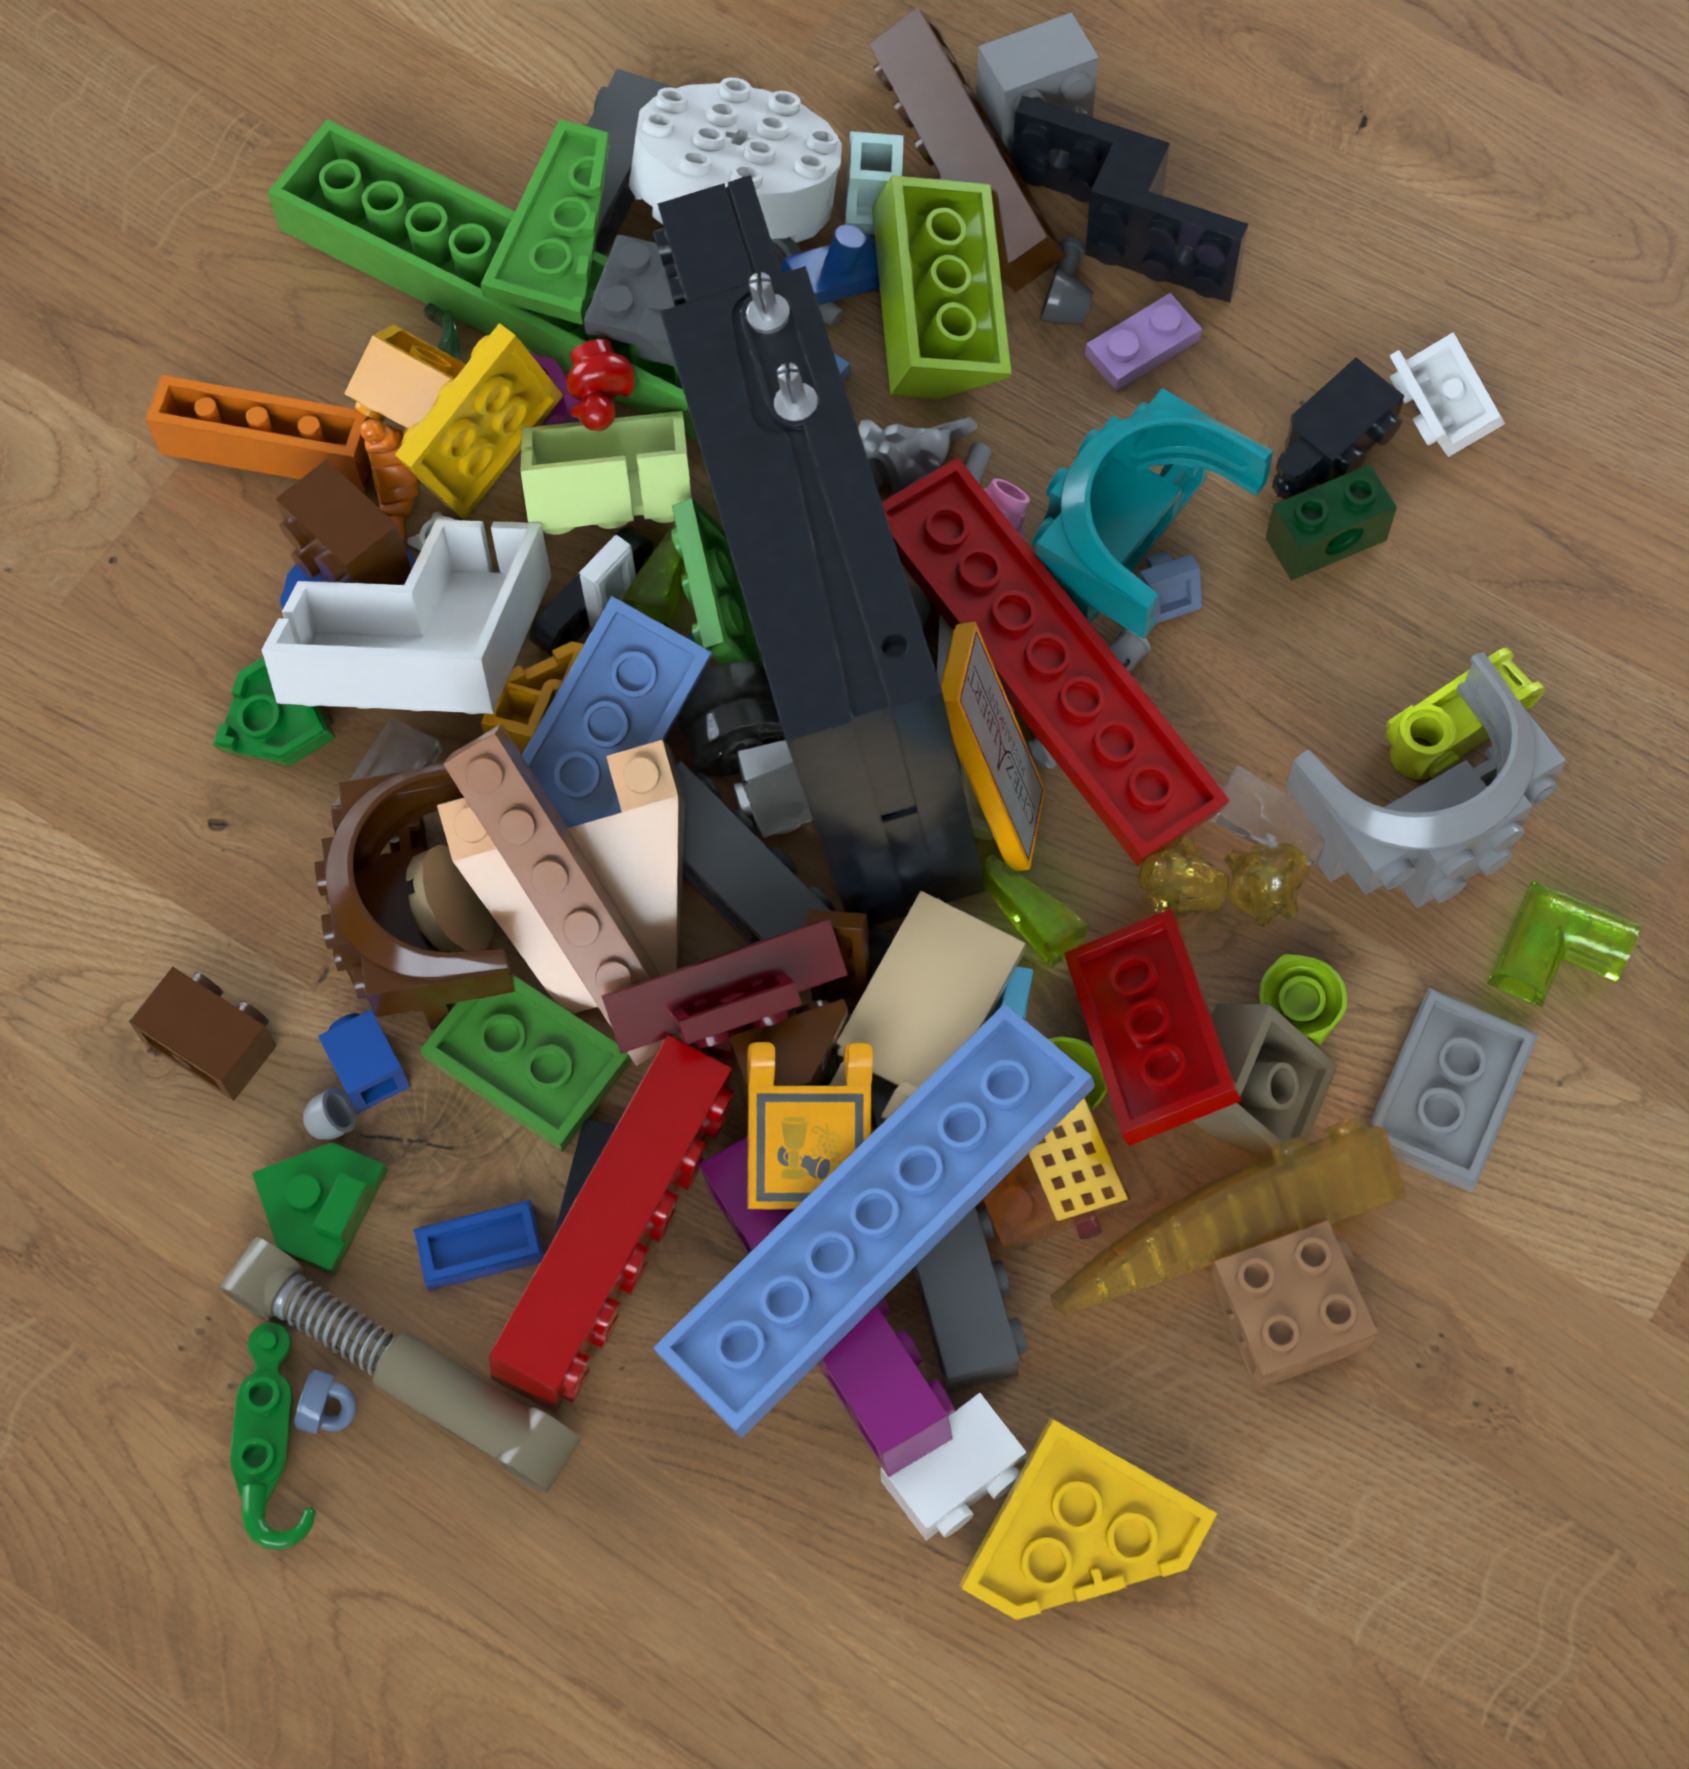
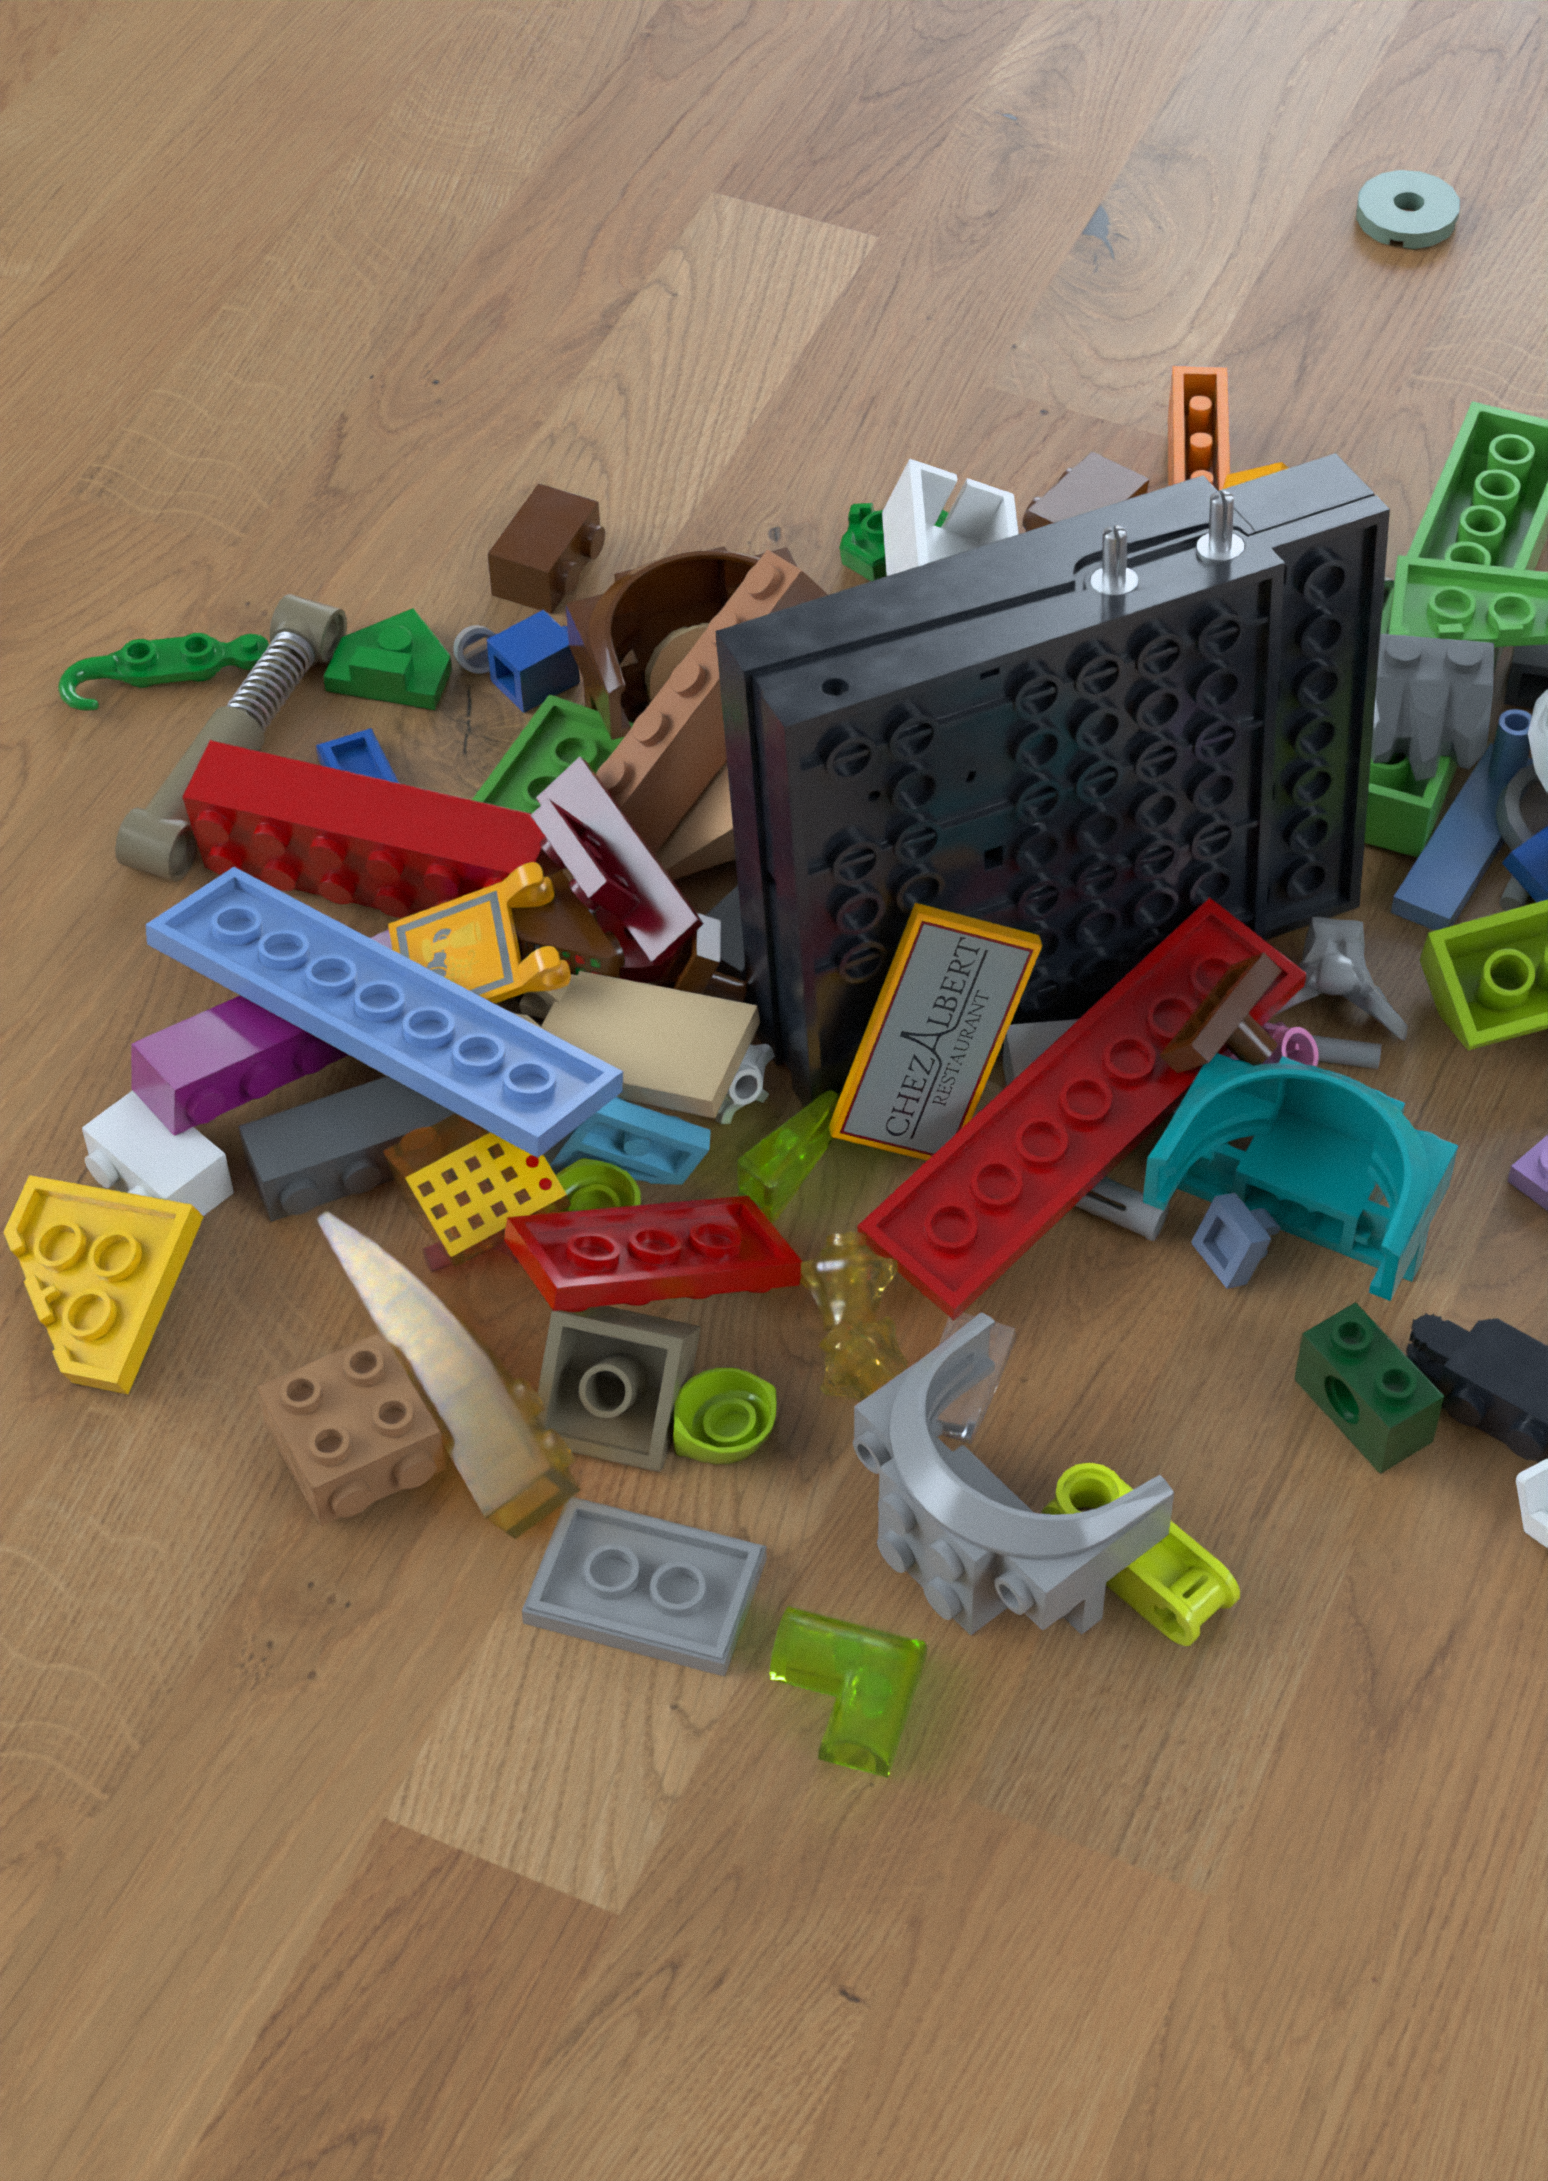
camera: 80 degrees right, 15 degrees down
(314, 1401) = (193, 688): sand blue tile -> none
(1008, 522) = (1226, 1019): none -> reddish brown tile

